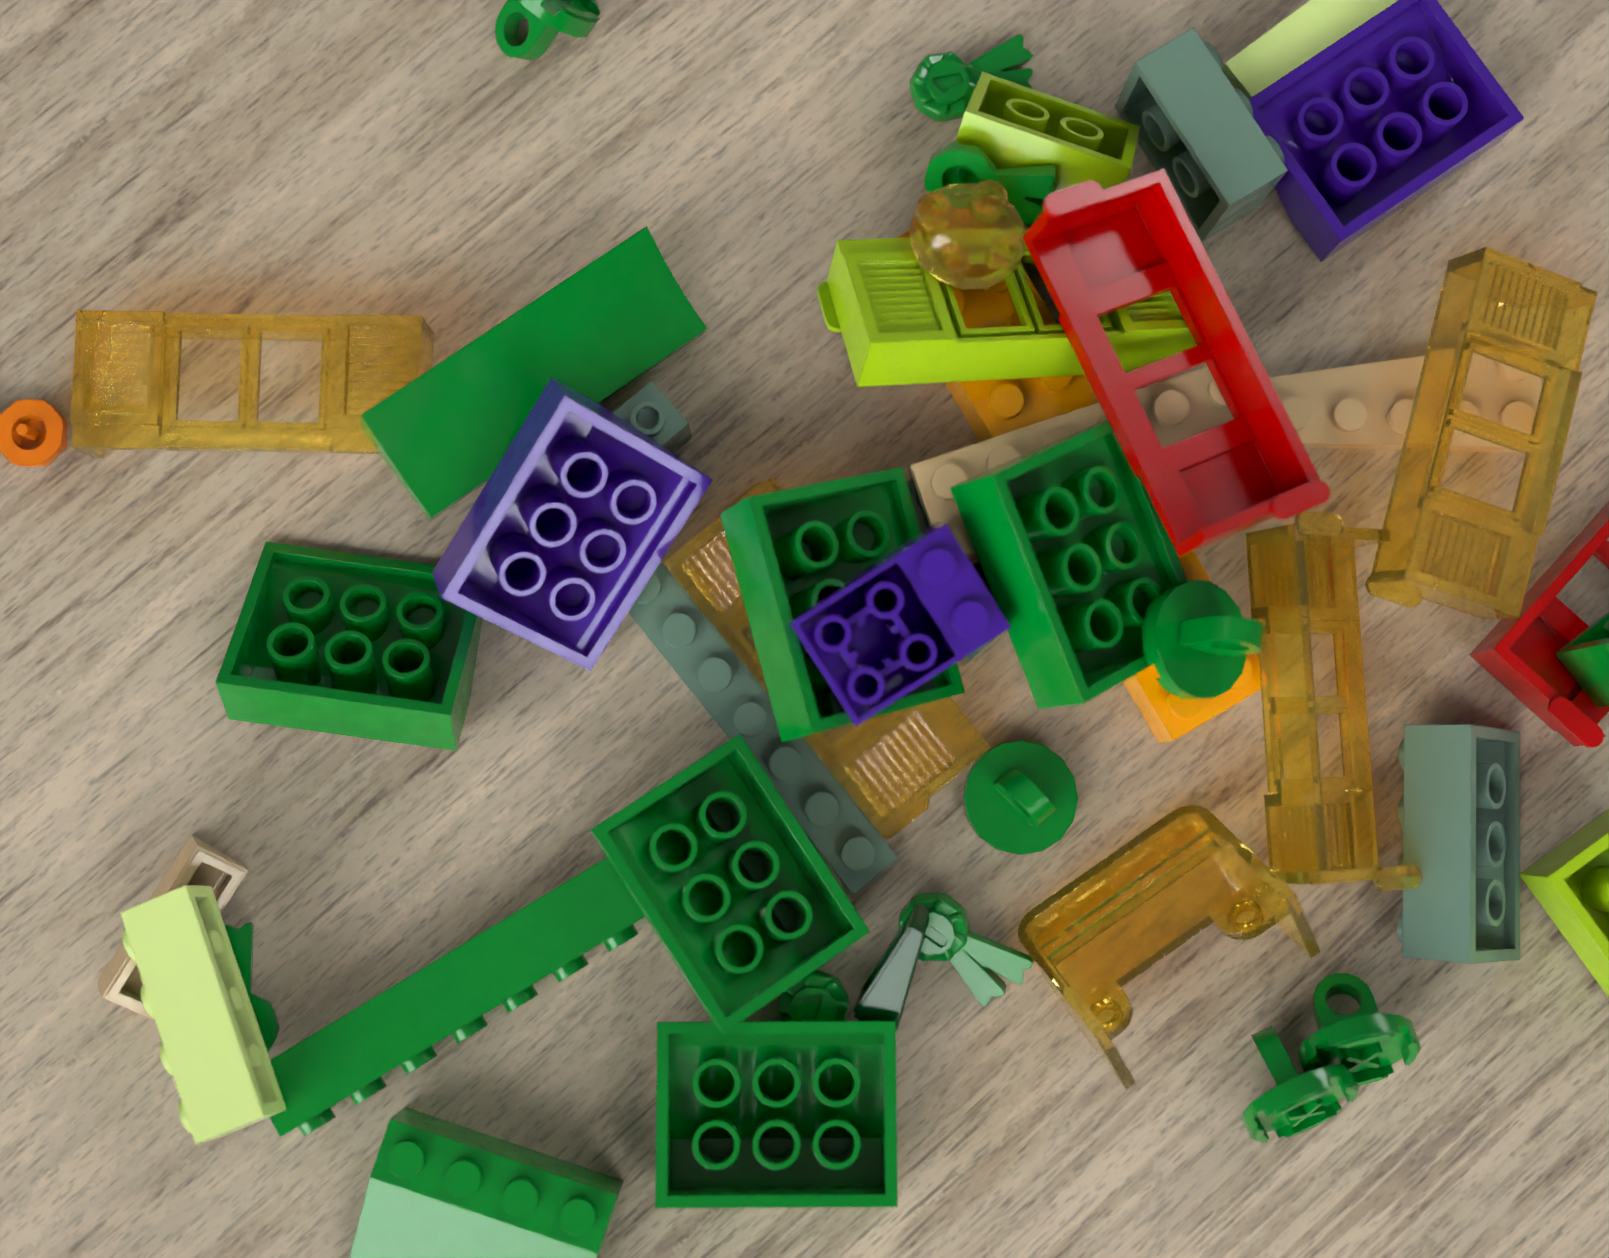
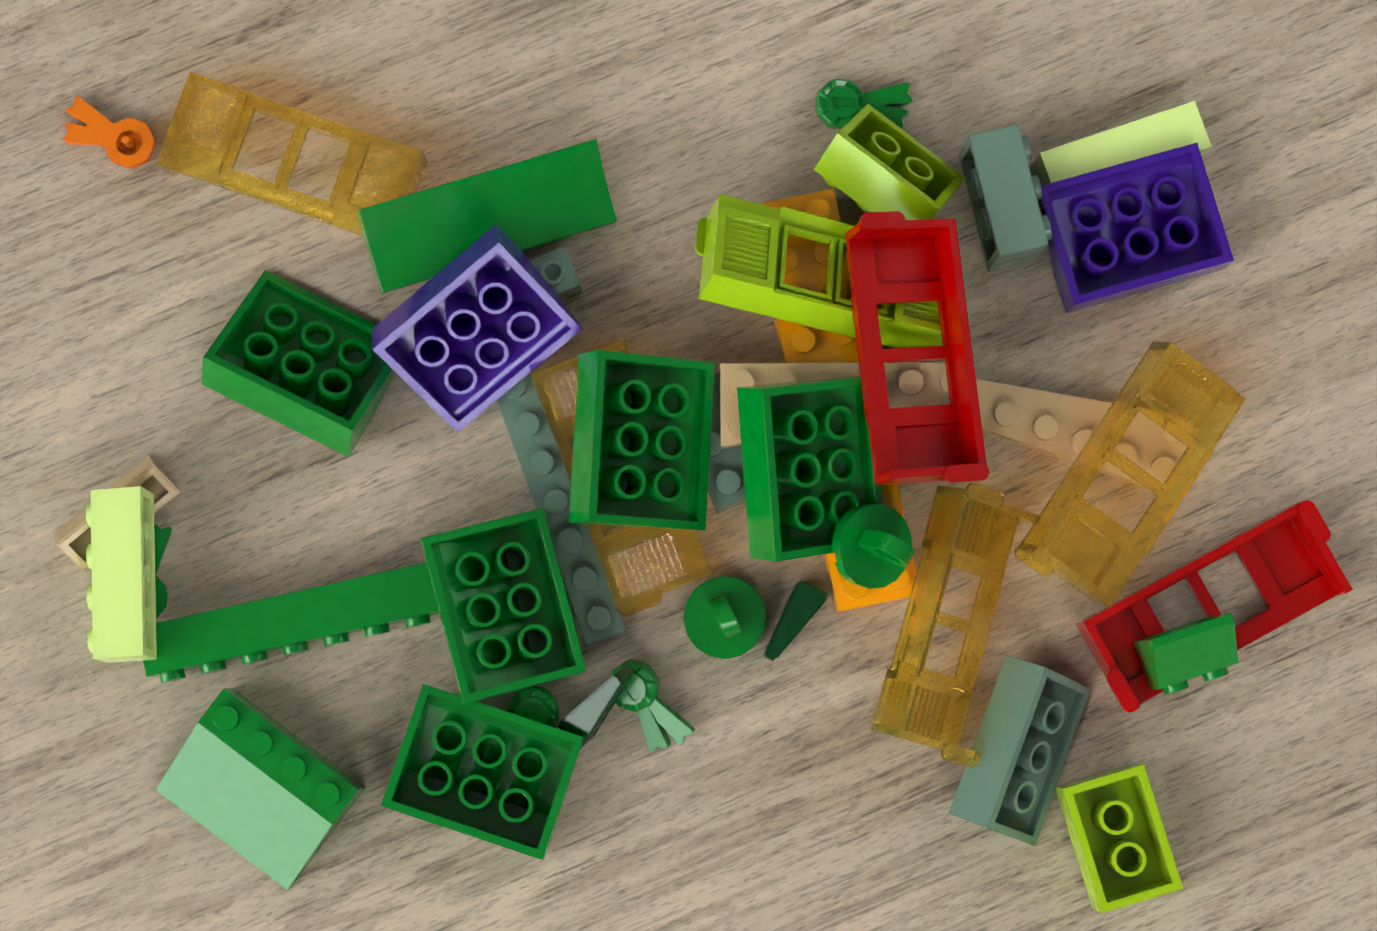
camera: 25 degrees right, 0 degrees up
(900, 623) = (671, 467): dark purple slope -> none
(968, 235) = (809, 219): clear yellow dish -> none
(970, 165) = (826, 180): green piece -> none
(1113, 762) = (800, 608): none -> dark green slope
(1145, 906) = (779, 723): clear yellow windscreen -> none
(1297, 1100) = (841, 883): green tile -> none
(1360, 1041) = (895, 862): green tile -> none

